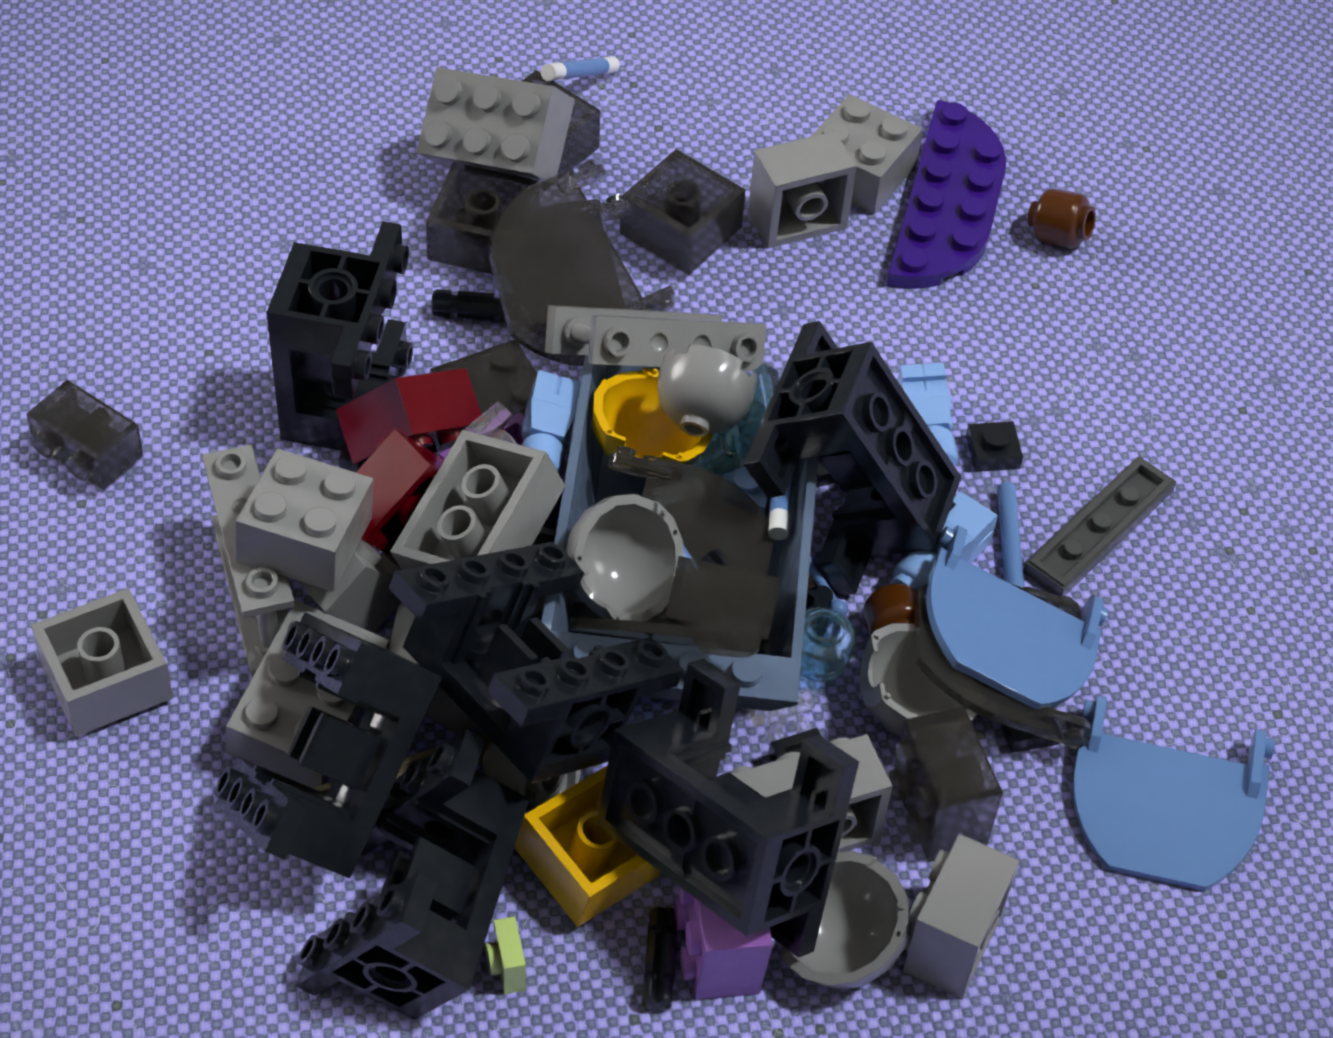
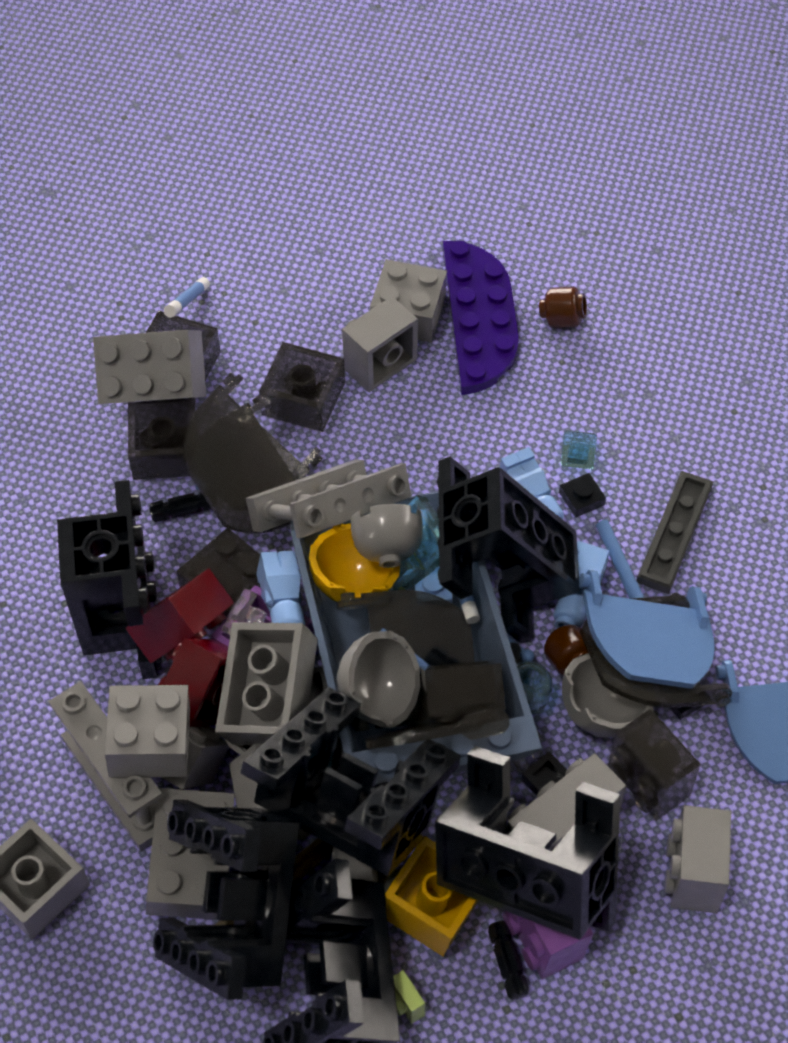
camera: 15 degrees left, 5 degrees up
(860, 926) = (643, 894): light grey cylinder -> none
(1012, 392) = (578, 449): none -> clear light blue slope

